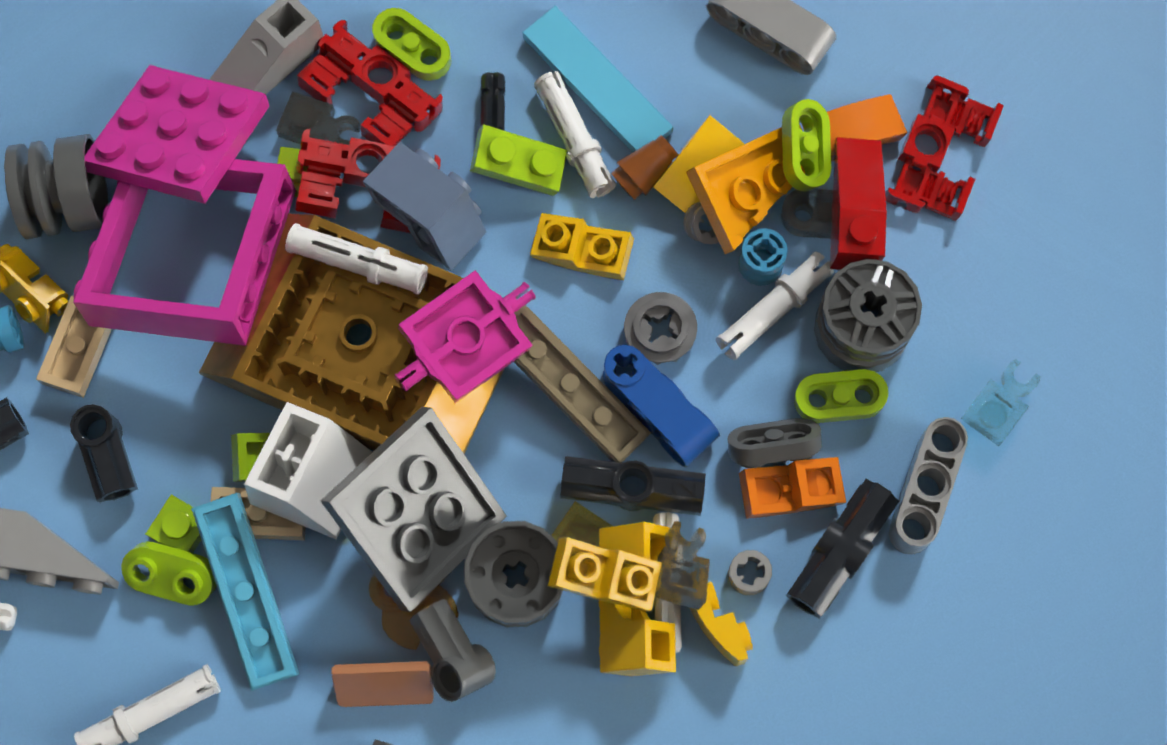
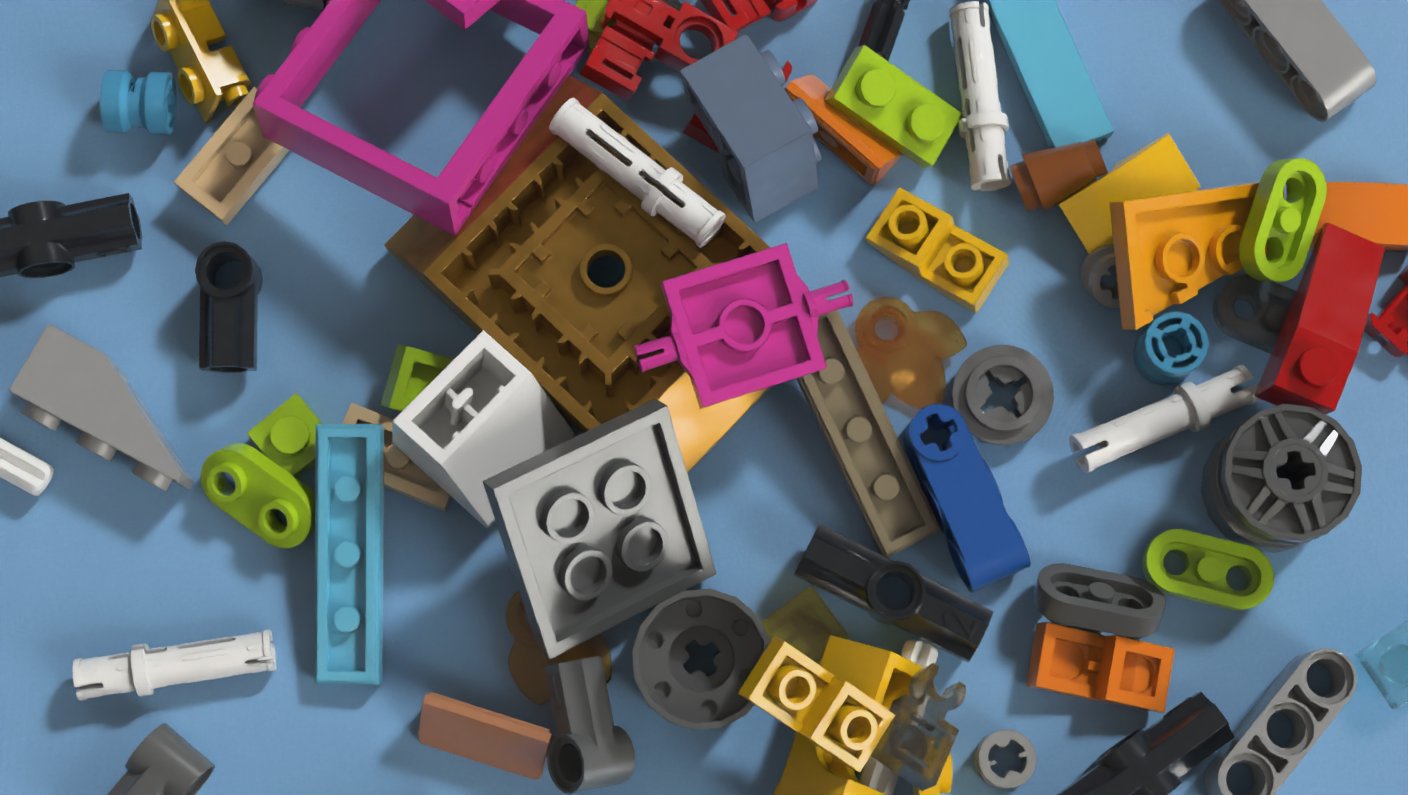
camera: 15 degrees right, 5 degrees up
(493, 192) = (842, 135): none -> orange slope
(591, 325) = (912, 360): none -> clear orange plate

